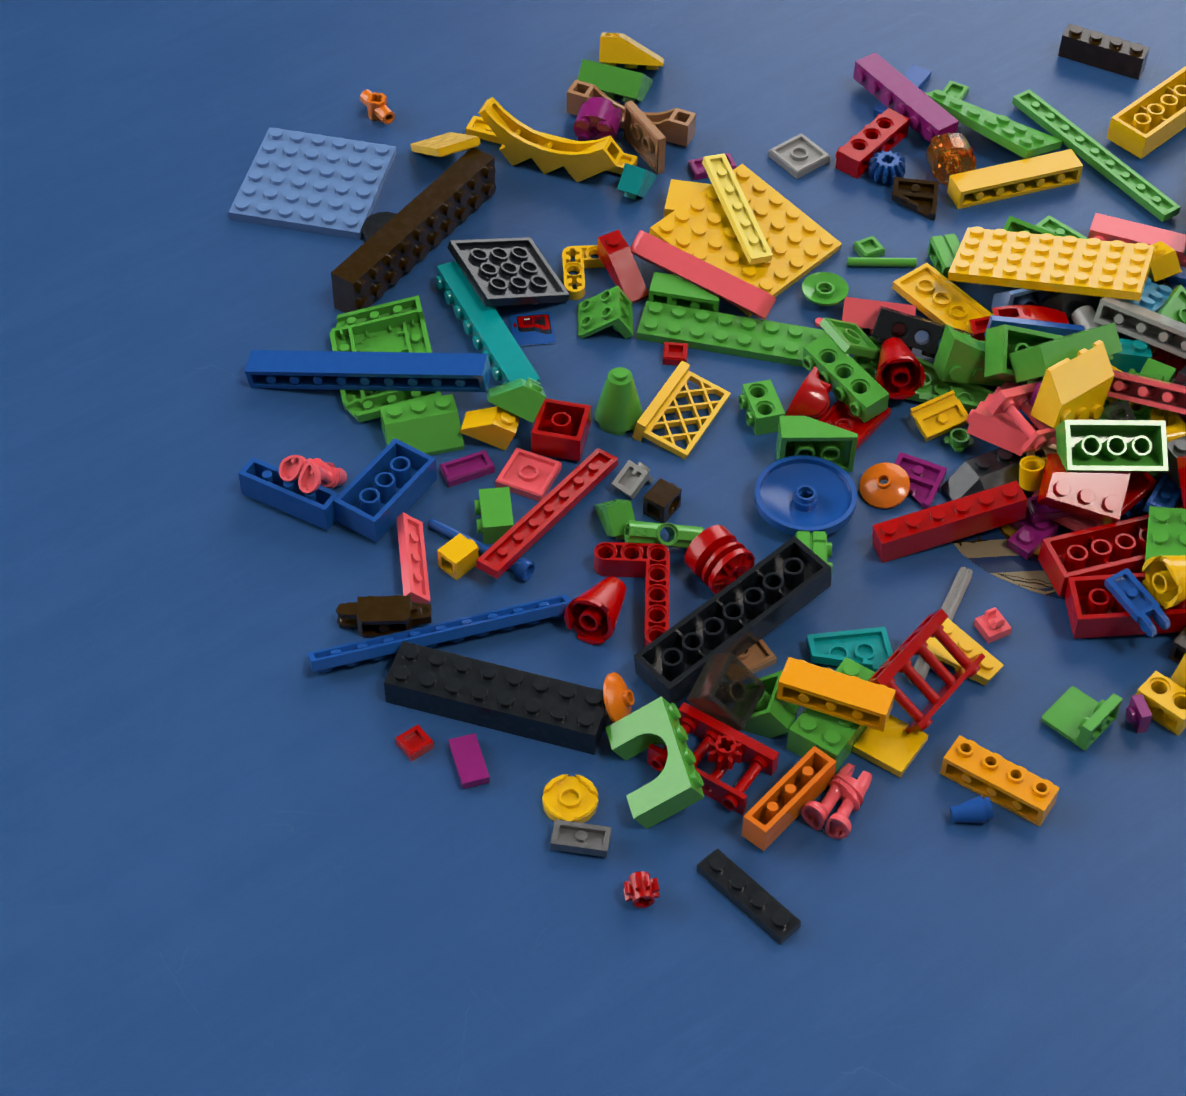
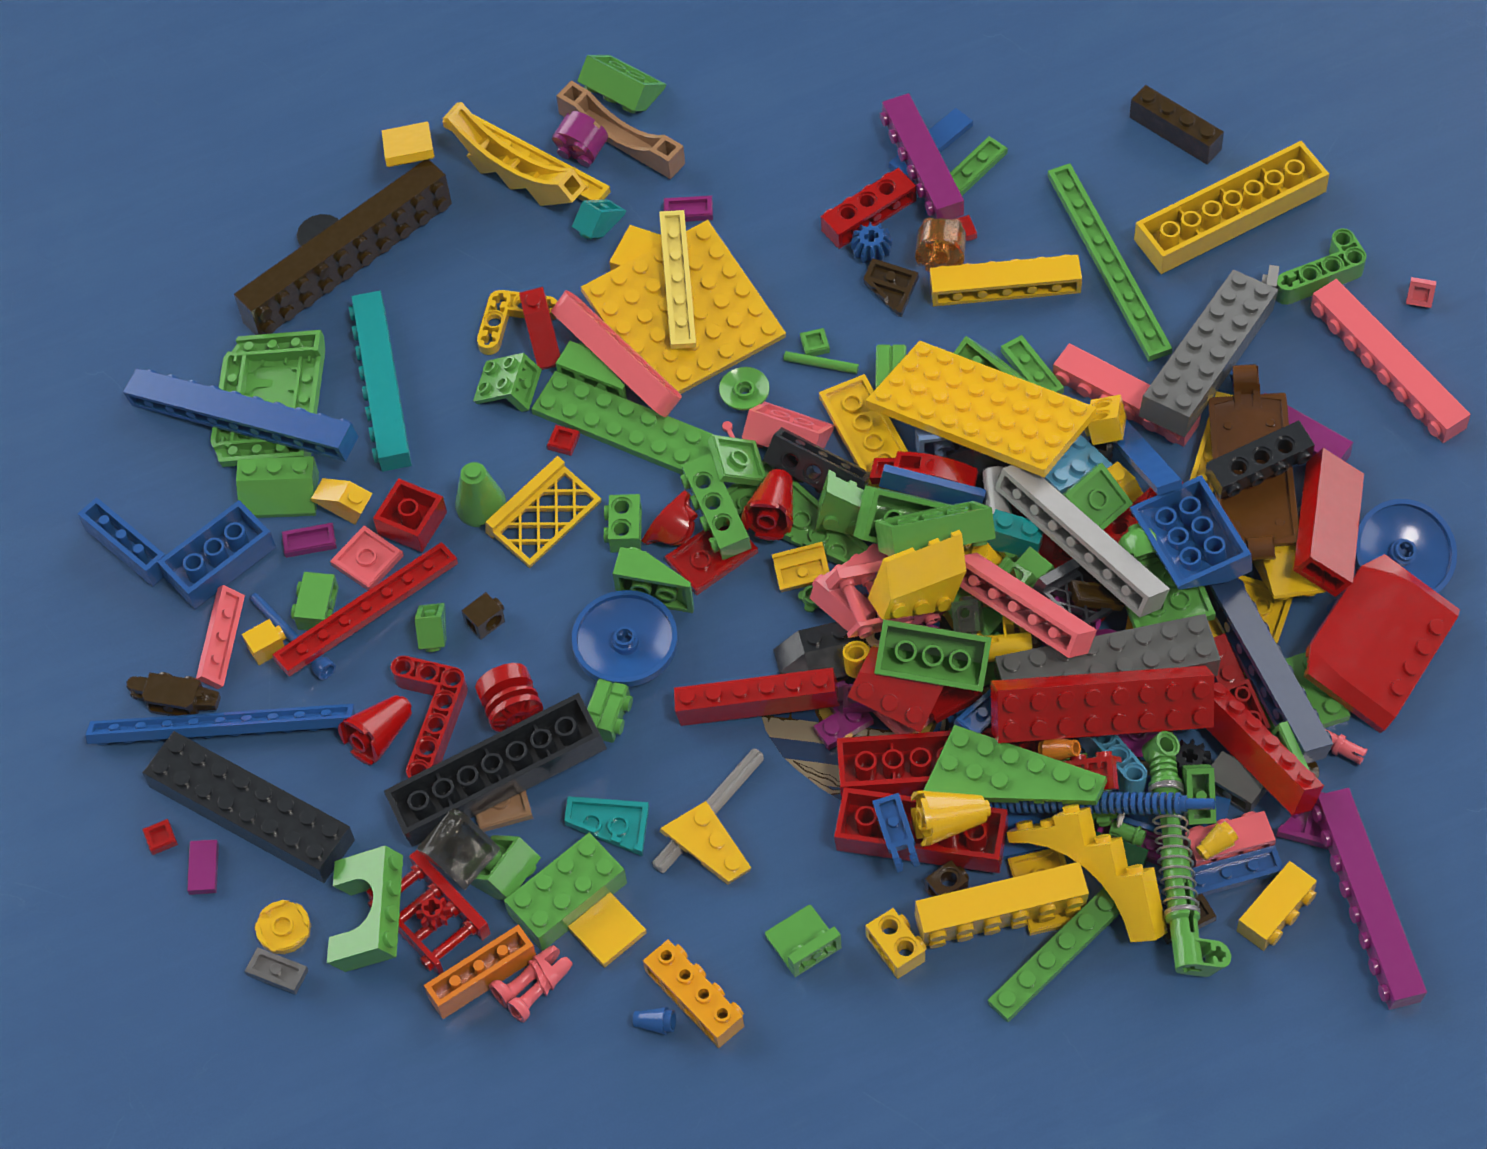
camera: 20 degrees right, 10 degrees up
(311, 473) = (141, 525): coral piece -> none
(313, 183) = (269, 163): medium blue plate -> none
(377, 106) = (361, 77): orange axle -> none
(508, 271) = (421, 314): black plate -> none
(518, 397) = (373, 474): bright green slope -> none
(532, 328) = (431, 383): sticker -> none
(617, 697) = (356, 831): orange dish -> none
(621, 49) = (644, 47): yellow slope -> none
(632, 478) = (464, 584): light grey bracket -> none
(641, 889) = (311, 1036): red gear -> none
(644, 137) = (621, 165): medium nougat tile -> none
(649, 532) = (450, 654): bright green piece -> none
(748, 896) = (411, 1062): black plate -> none
(799, 156) = (786, 210): light grey tile -> none
(835, 694) = (552, 876): light orange brick -> none
(884, 495) = (721, 646): orange dish -> none
(901, 662) = (654, 839): red fence -> none
(923, 476) = (752, 636): magenta wing -> none
(992, 625) = (760, 820): coral tile -> none
(998, 128) = (1017, 218): bright green wing -> none
(1138, 713) = (859, 949): magenta plate -> none

